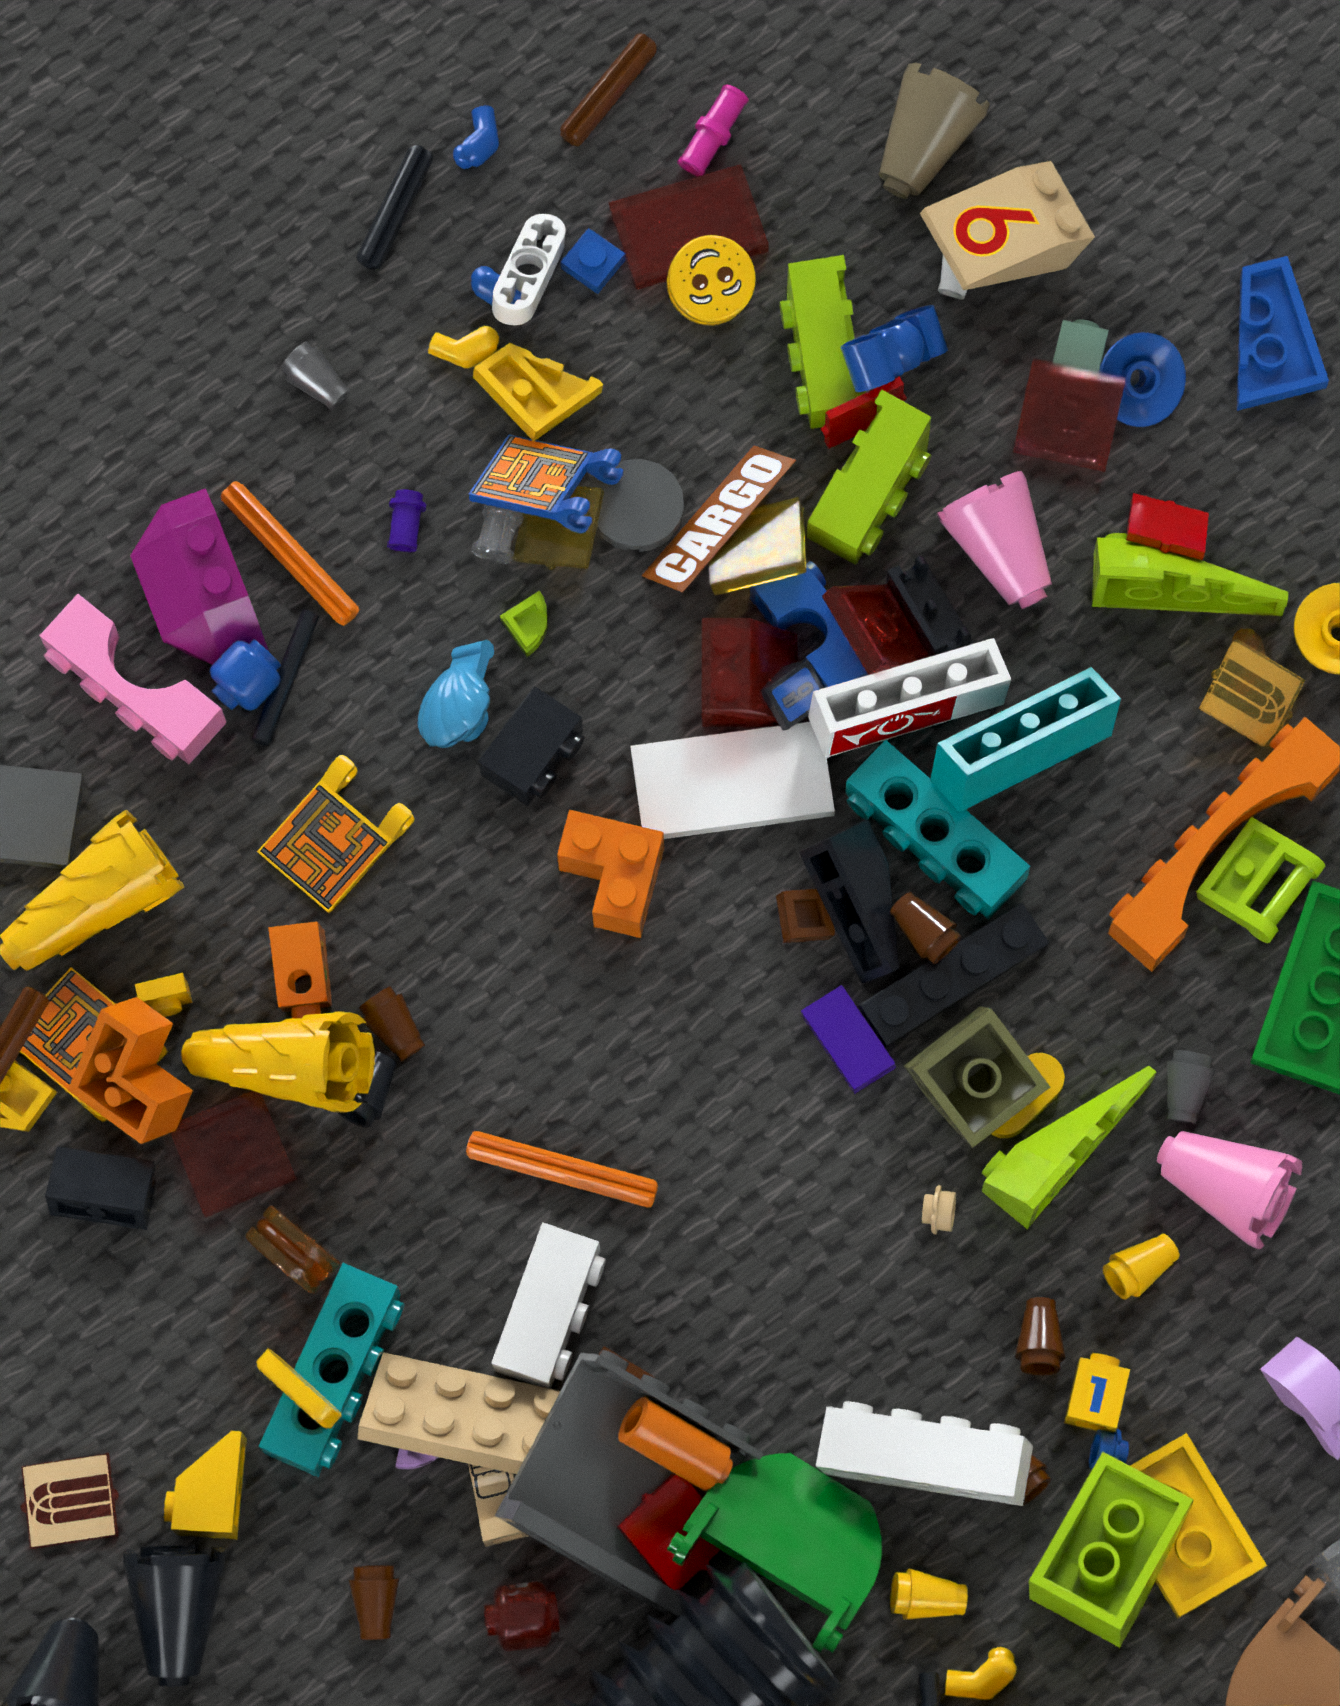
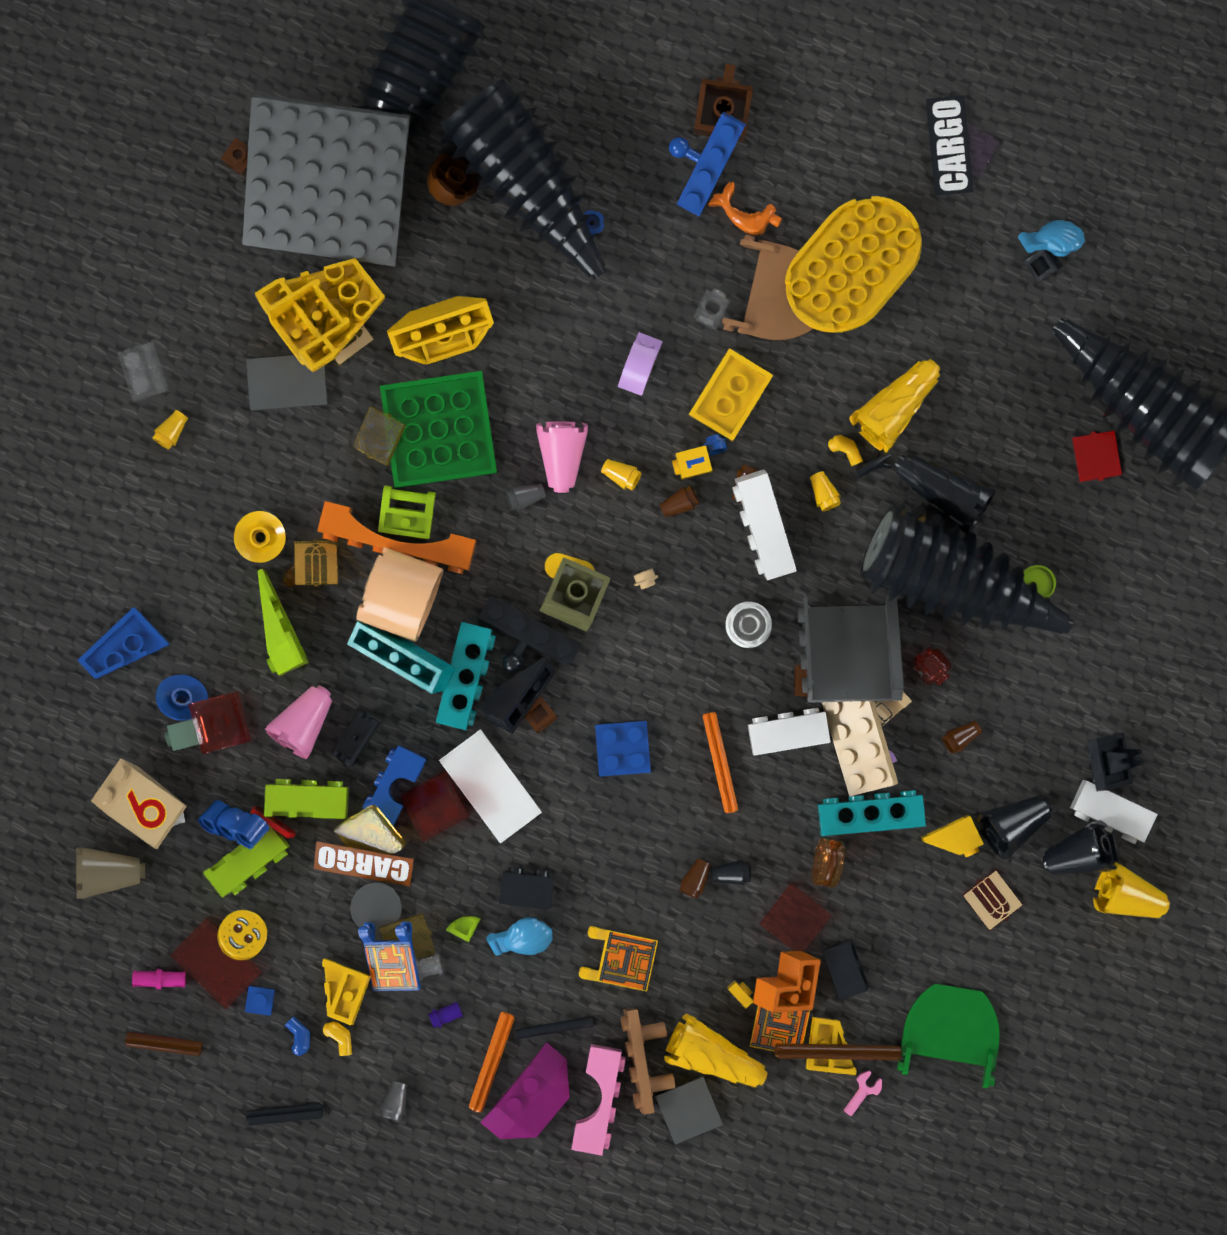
camera: 120 degrees left, 15 degrees up
(194, 795) = (638, 1072): none -> medium nougat plate
(245, 675) = (566, 1046): blue head -> none
(296, 953) = (689, 941): orange torso -> none
(298, 1389) = (892, 821): yellow tile -> none
(302, 1059) = (743, 914): yellow cone -> none
(481, 143) = (226, 1090): blue arm -> none
(534, 285) = (293, 1021): white beam -> none
(623, 860) = (560, 812): orange brick -> none
(656, 1523) = (858, 618): red piece -> none
(674, 1023) = (622, 748): none -> blue plate
(675, 1444) = (823, 638): orange brick -> none
(767, 1339) = (748, 624): none -> white piece
(791, 692) = (434, 778): slope -> none
(795, 1532) = (830, 564): green piece -> none
(848, 1039) = (587, 664): dark purple tile -> none
(874, 626) = (381, 756): clear red tile -> none
(909, 697) = (408, 722): white brick -> none
(925, 927) = (518, 654): reddish brown cone -> none
(1047, 1160) = (599, 541): lime wedge -> none
(1109, 1549) = (761, 420): lime slope -> none
(1129, 786) = (399, 594): none -> light nougat brick
(1167, 526) = (252, 645): red piece -> none

